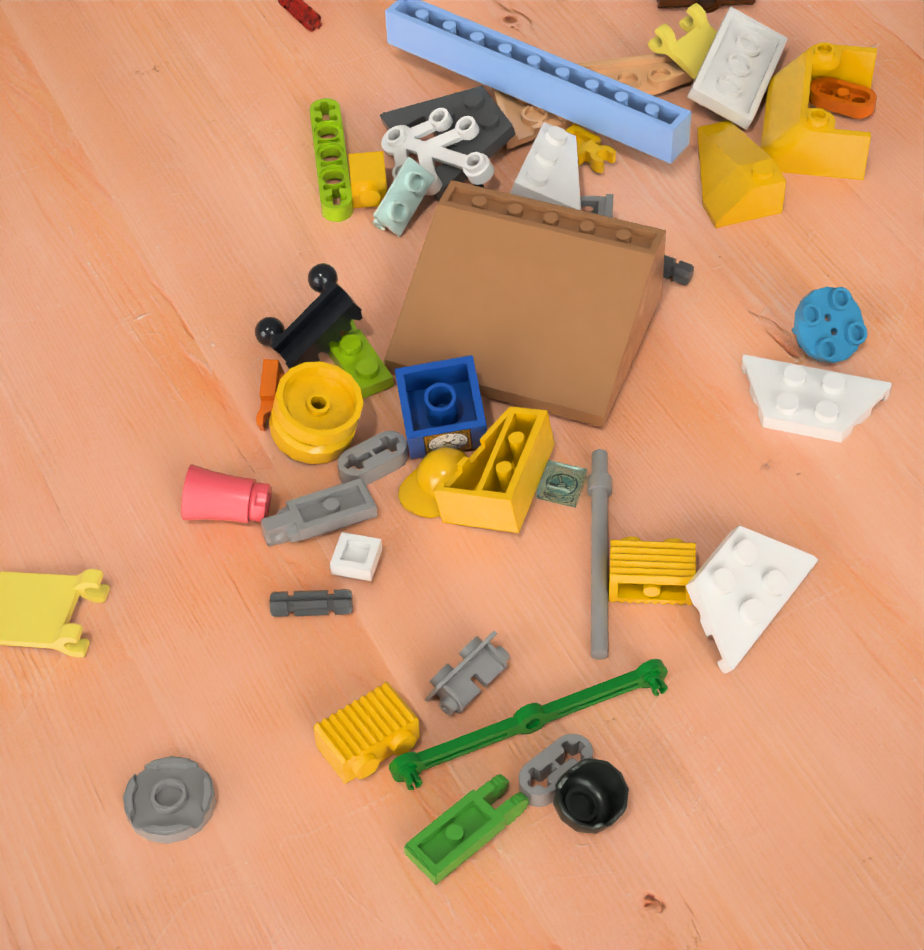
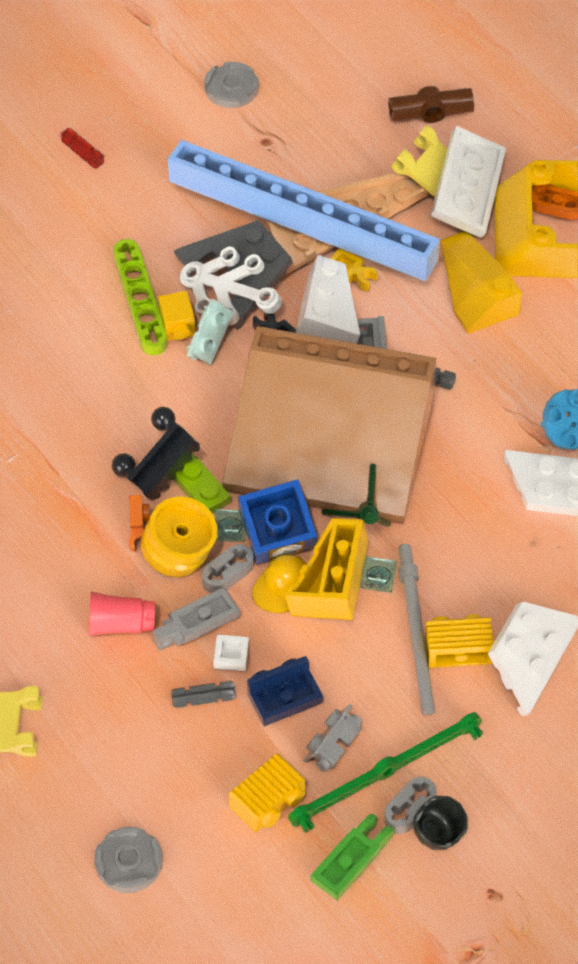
camera: 10 degrees left, 5 degrees up
(383, 412) = (229, 526): none -> clear light blue tile
(413, 607) = (283, 690): none -> dark blue bracket
(556, 401) = (367, 510): none -> dark green plant

